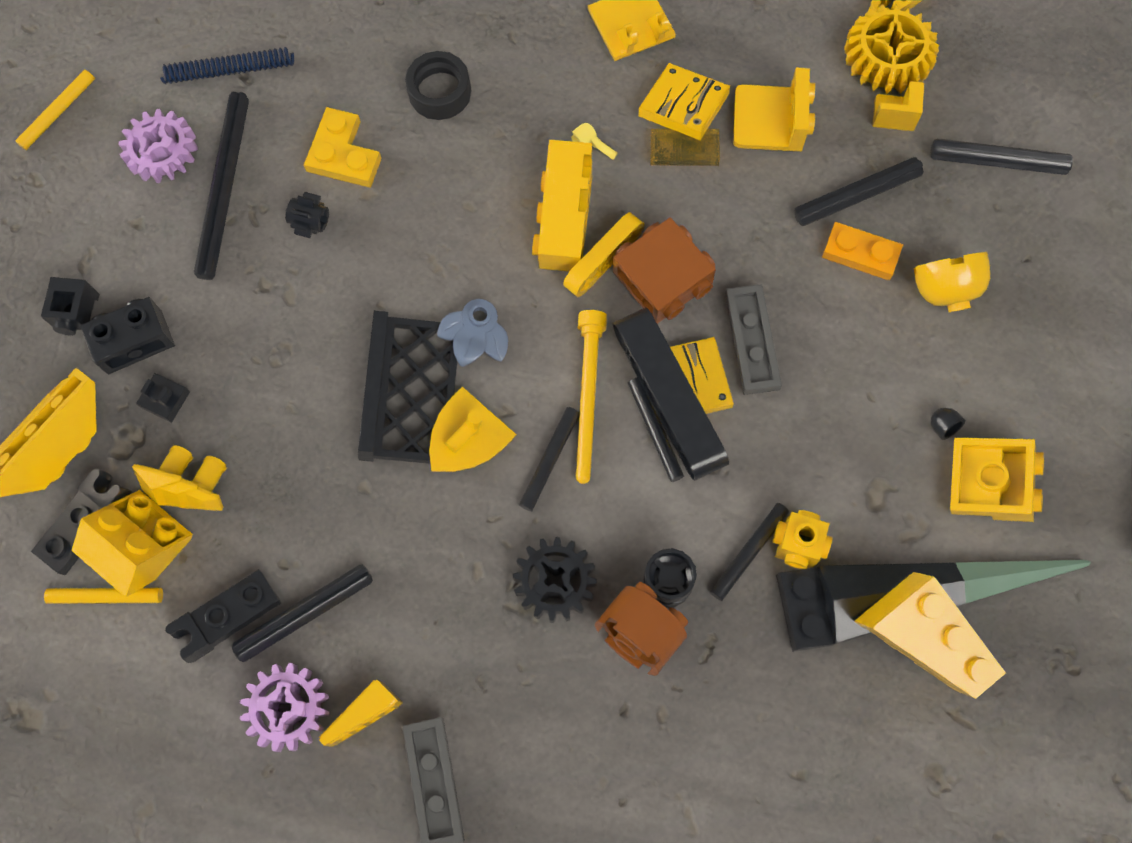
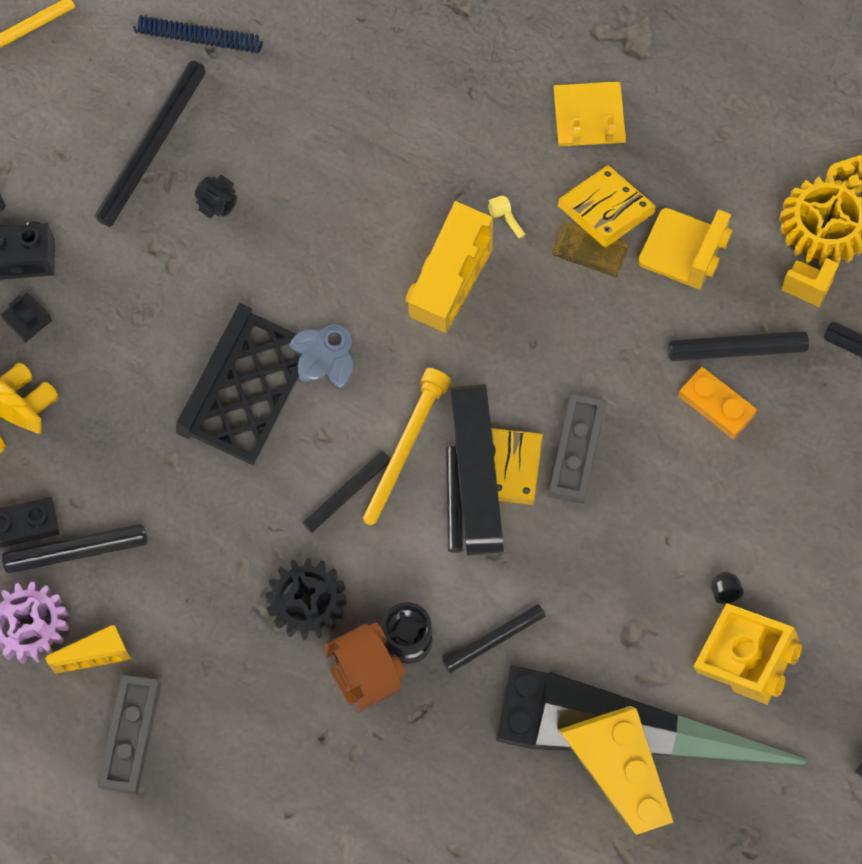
camera: 20 degrees right, 5 degrees down
(158, 146) = (107, 88): lavender gear -> none
(334, 154) = (263, 147): yellow plate -> none
(435, 63) = (378, 94): black tyre -> none
(466, 434) = (280, 443): yellow shield -> none
(601, 256) = (471, 323): yellow beam -> none
(664, 269) = (520, 356): dark orange brick -> none
(796, 551) = (539, 654): yellow brick -> none
(954, 280) = (787, 458): yellow cylinder -> none

